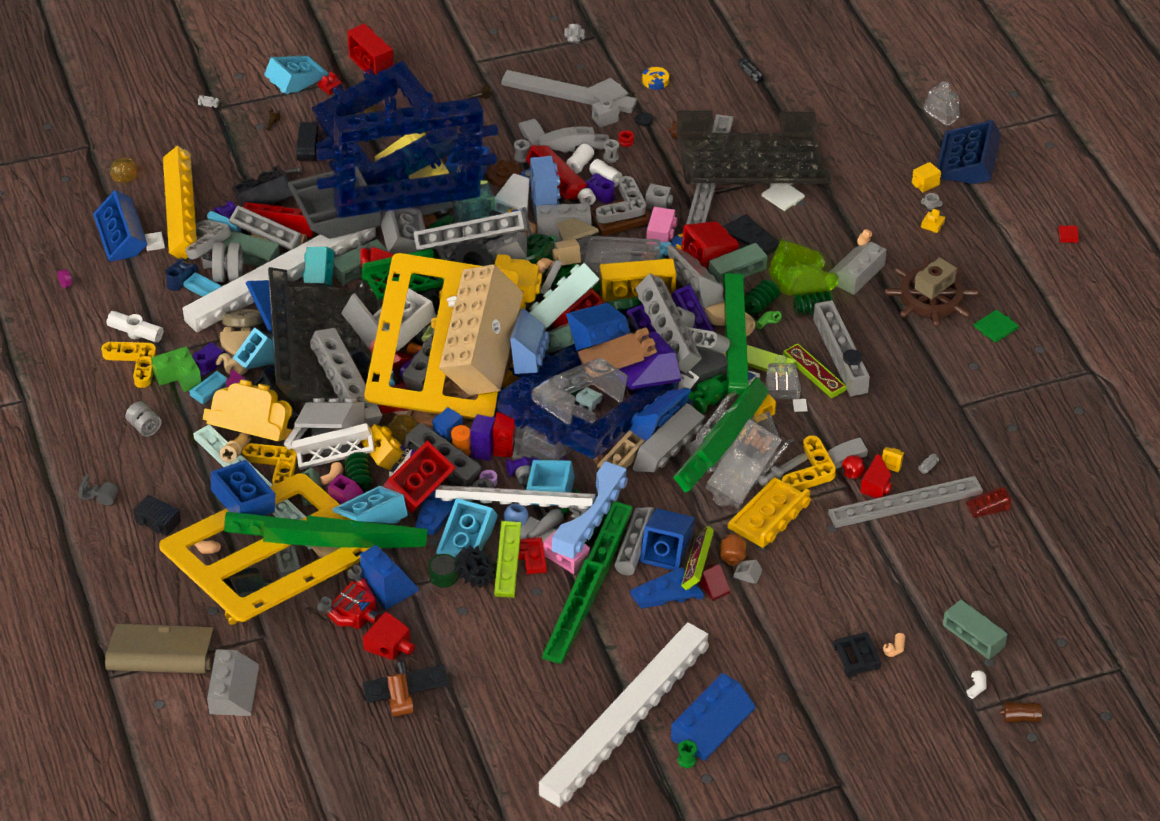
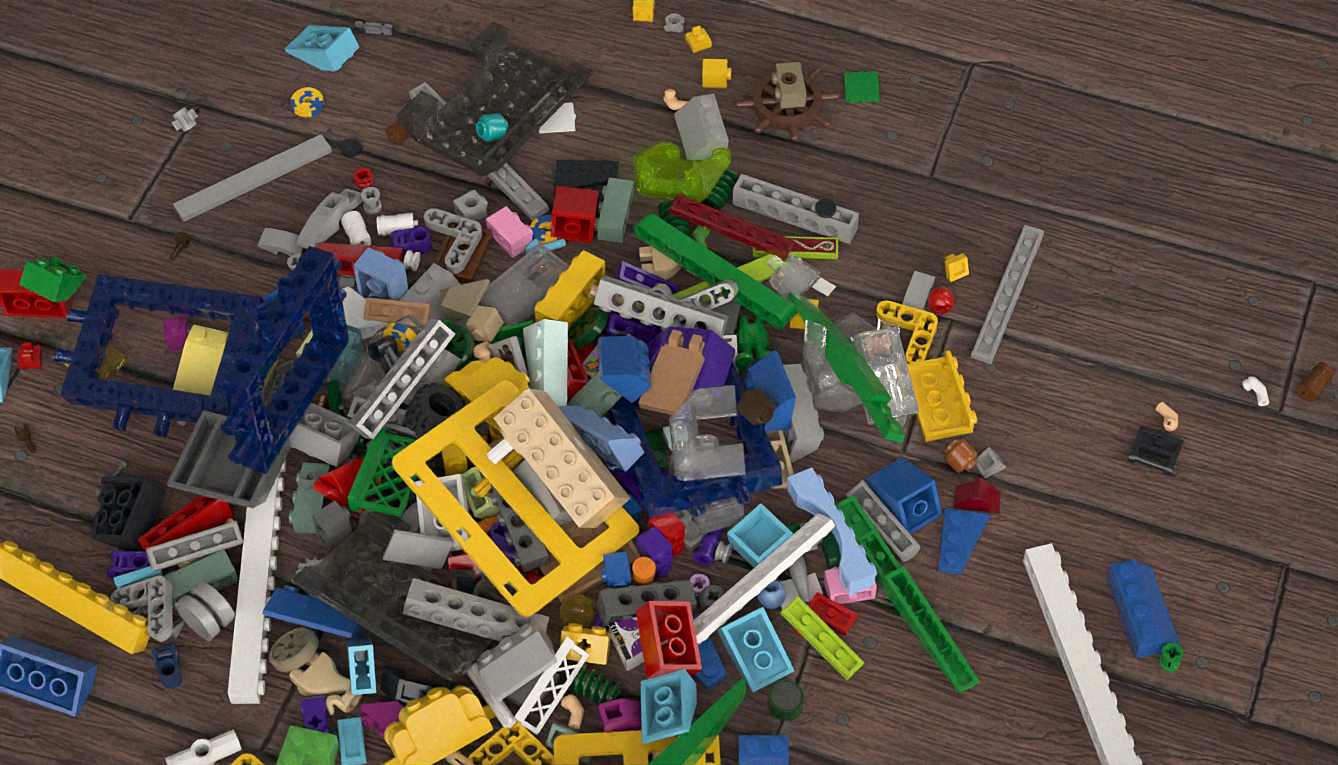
camera: 50 degrees left, 10 degrees up
(155, 241) = (92, 654): white tile -> none
(200, 284) = (203, 655): medium azure tile -> none
(306, 141) = (93, 429): black beam -> none
(318, 266) = (293, 536): teal brick -> none
(344, 275) = (332, 525): none -> dark grey brick
(377, 44) = (52, 278): none -> green slope
(475, 566) = (808, 671): black gear -> none
(535, 212) = (392, 310): none -> medium nougat plate
(605, 112) = (316, 170): light grey brick -> none
(606, 90) = (289, 149): light grey piece -> none
(631, 403) = (756, 406): none -> dark brown brick
(692, 273) = (613, 250): light grey slope -> none
(697, 558) = (954, 490): tile -> none
(705, 57) = (324, 46): none -> medium azure slope
(723, 159) = (491, 127): none -> teal head
(785, 323) = (732, 227): none -> dark red tile
(876, 479) = (969, 293): red slope -> none
(911, 244) = (715, 73): none -> yellow brick
(928, 463) = (980, 245): light grey piece -> none
(975, 629) = (1199, 348): sand green brick -> none
(999, 496) = (1065, 224): clear red slope -> none

